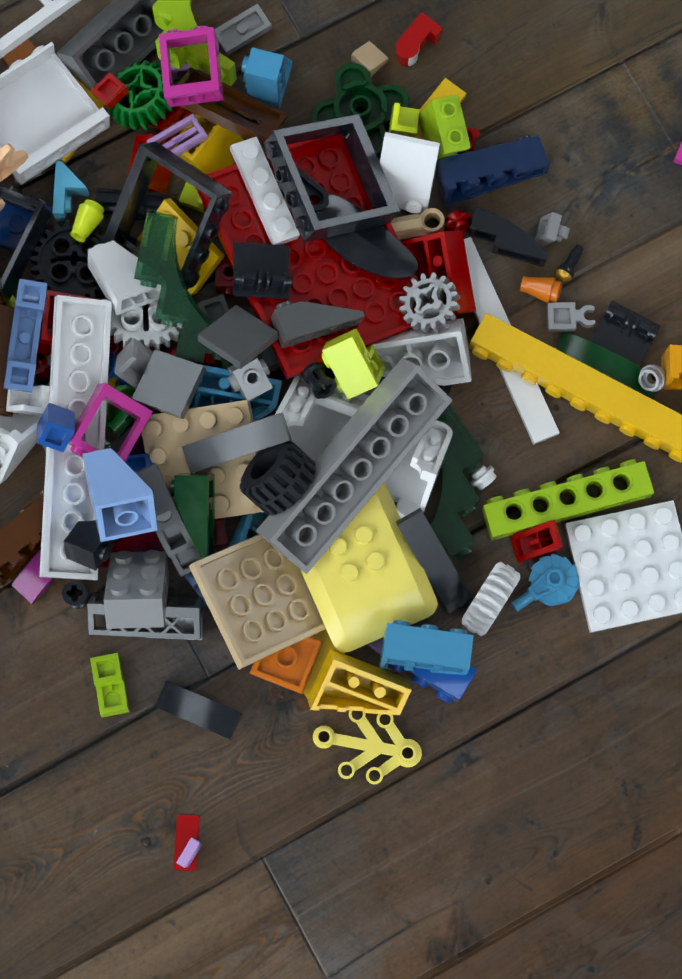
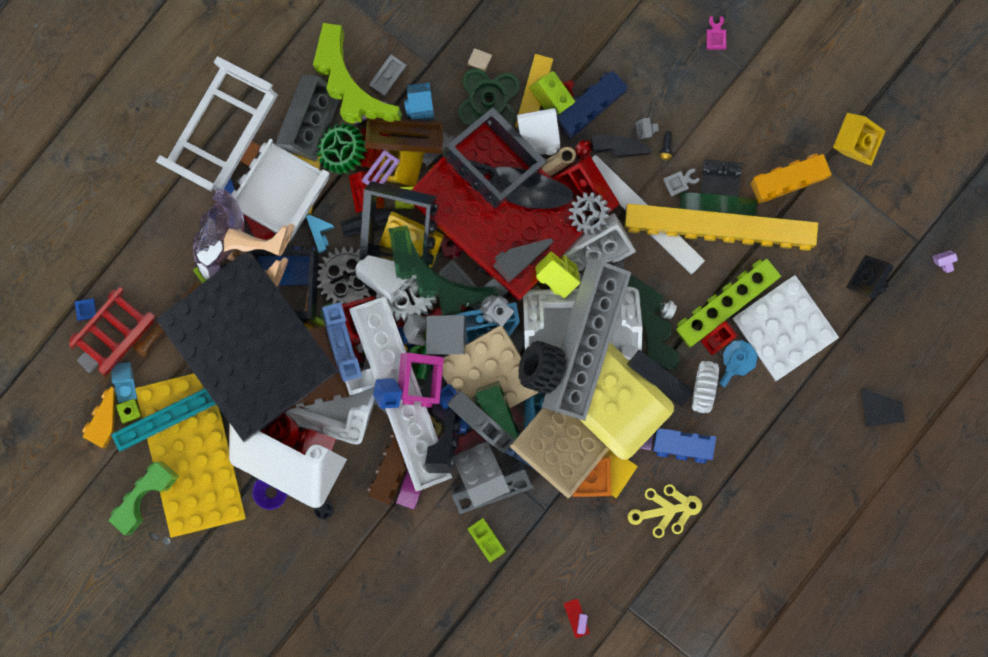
camera: 20 degrees left, 5 degrees up
(70, 588) = (435, 490): black bush -> none
(87, 219) = (343, 247): neon yellow cone -> none
(110, 90) = (321, 155): red tile -> none
(118, 496) = (447, 422): light blue slope -> none
(192, 92) = (382, 139): dark pink window -> none
(198, 710) = (549, 533): black slope -> none
(236, 442) = (507, 356): dark grey slope -> none
(238, 336) = (479, 287): dark grey tile -> none
(261, 270) = (474, 238): black hinge -> none
(264, 191) = (454, 184): white plate -> none
(319, 380) = (544, 292): black bush -> none
(357, 686) = (644, 476): yellow wedge -> none
(404, 121) = (521, 96): neon yellow panel -> none
(416, 38) = (504, 35): red leg -> none
(426, 648) = (679, 436): dark azure wedge -> none
(542, 288) = (655, 170): orange cone -> none
(646, 380) = (750, 206): light grey plate -> none

